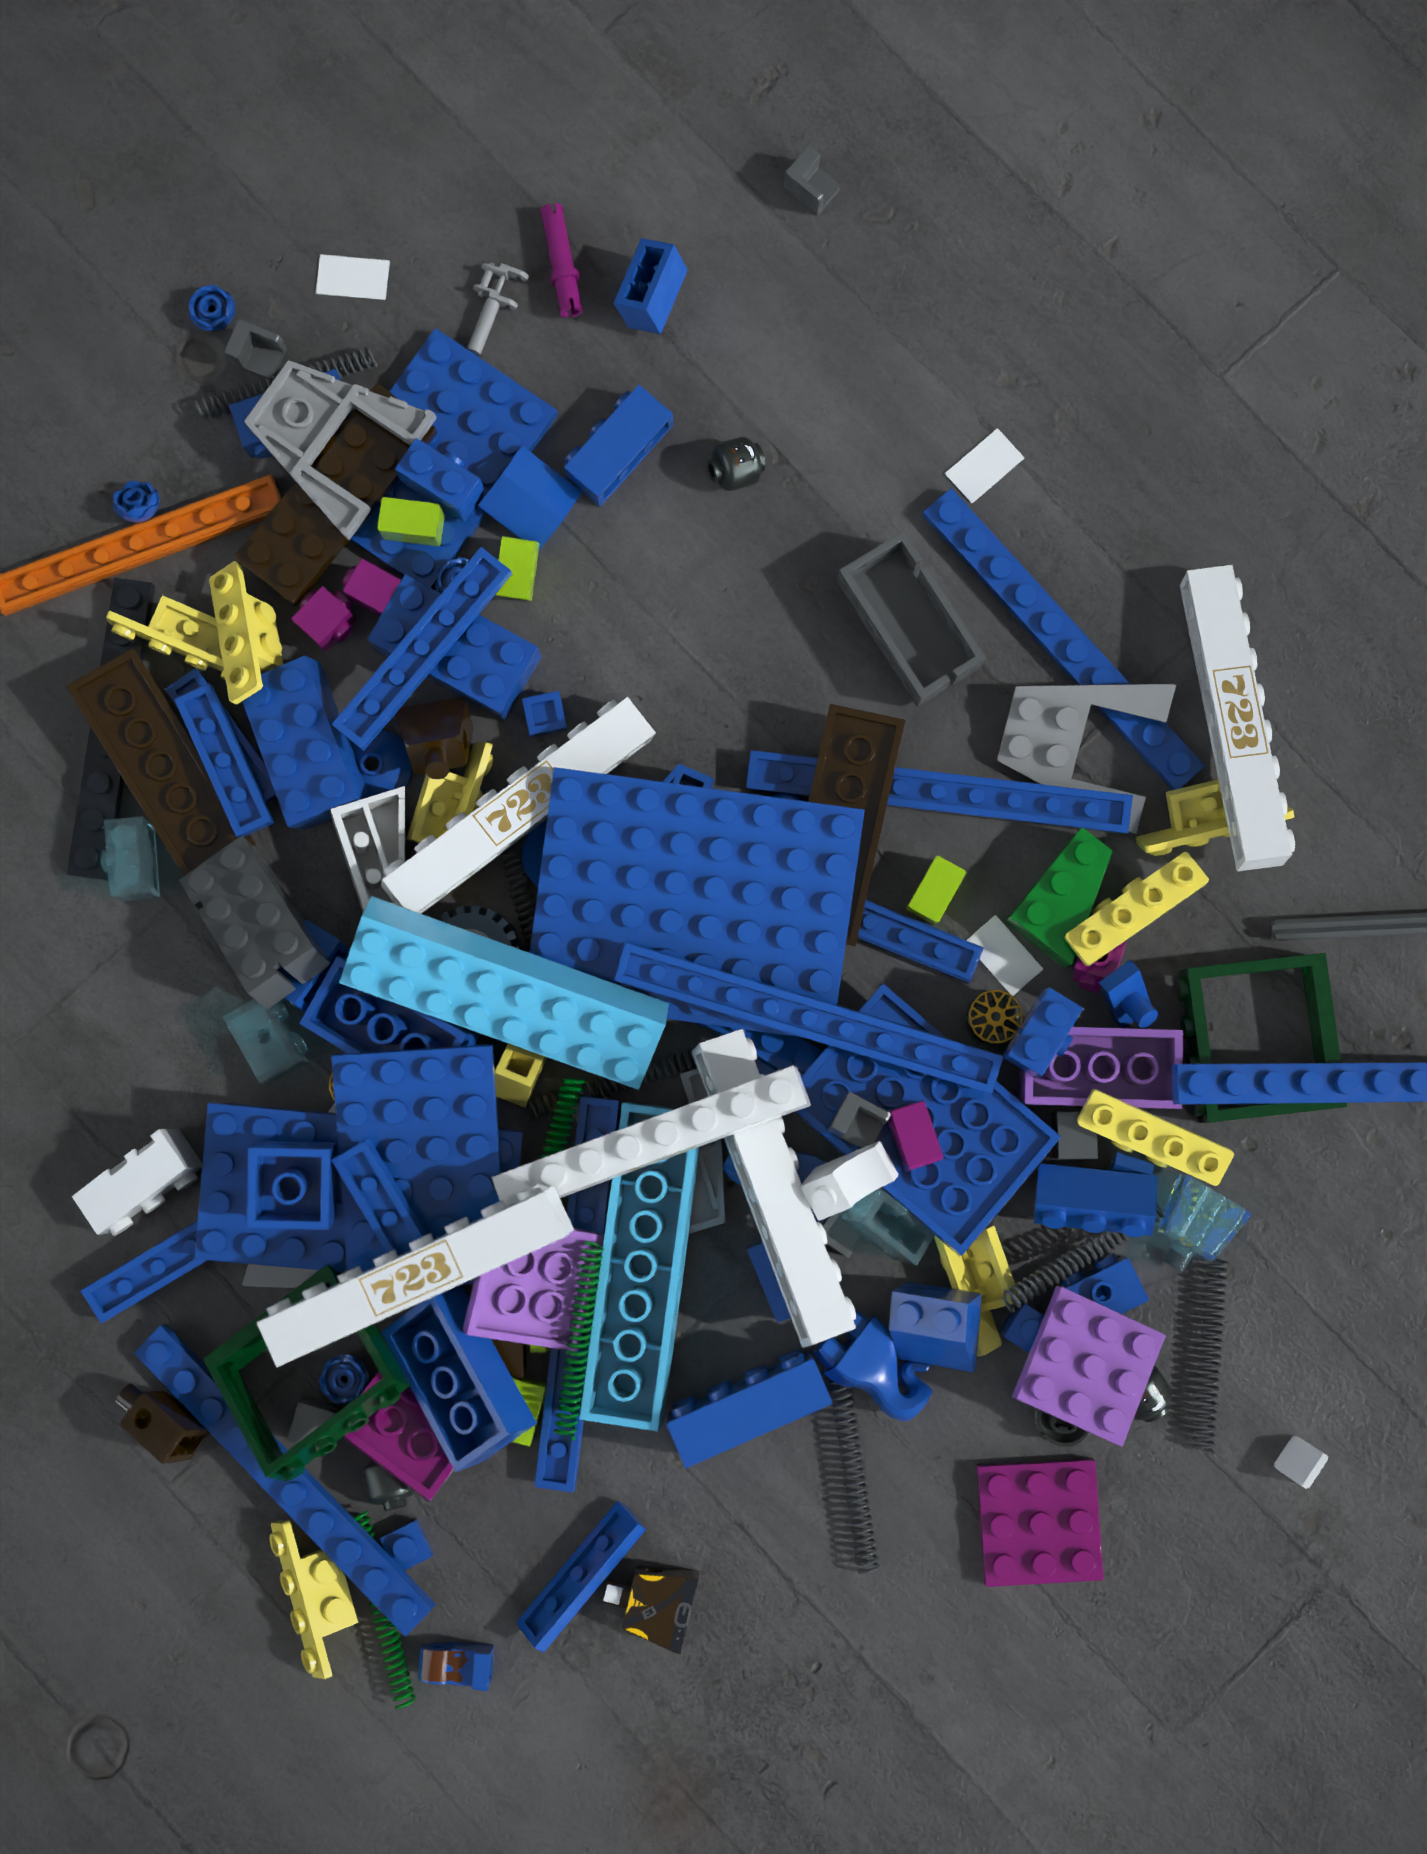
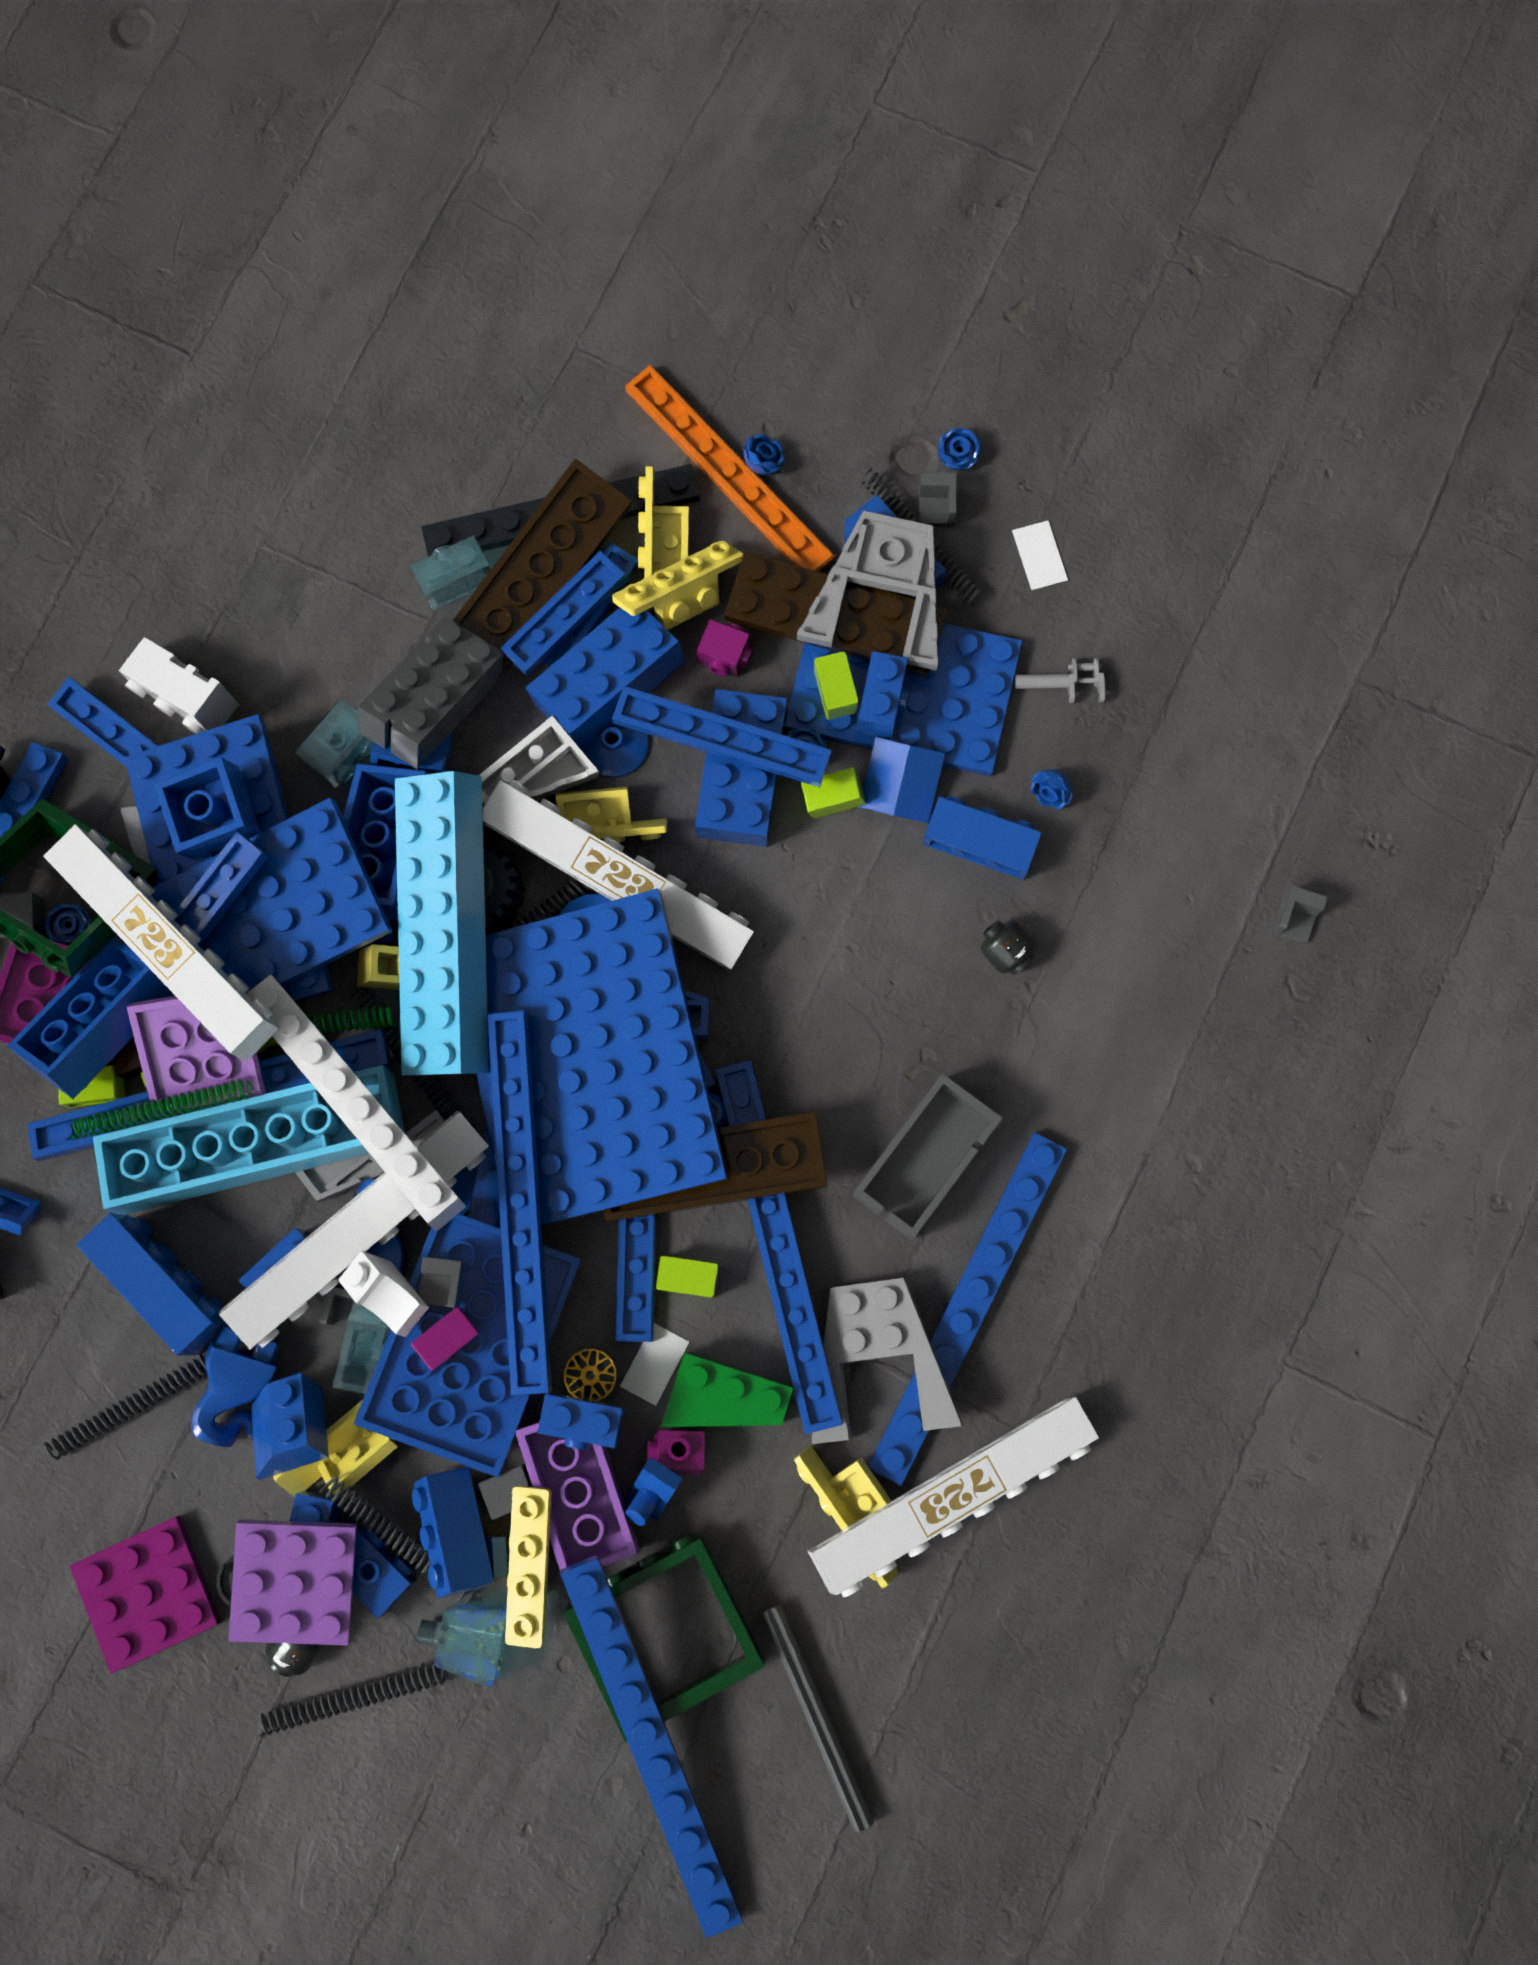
camera: 70 degrees right, 5 degrees down
(369, 586) = (765, 673): magenta brick -> none
(436, 735) = (655, 781): dark brown torso -> none
(544, 714) = (714, 868): blue plate -> none
(563, 275) = (1116, 731): magenta pin -> none
(596, 359) = (1052, 788): none -> blue plate
(650, 286) = (1136, 808): blue brick -> none
(984, 465) = (1103, 1173): white sticker -> none
(1135, 909) = (736, 1468): light yellow bracket -> none
(1300, 1461) = (280, 1824): white slope -> none

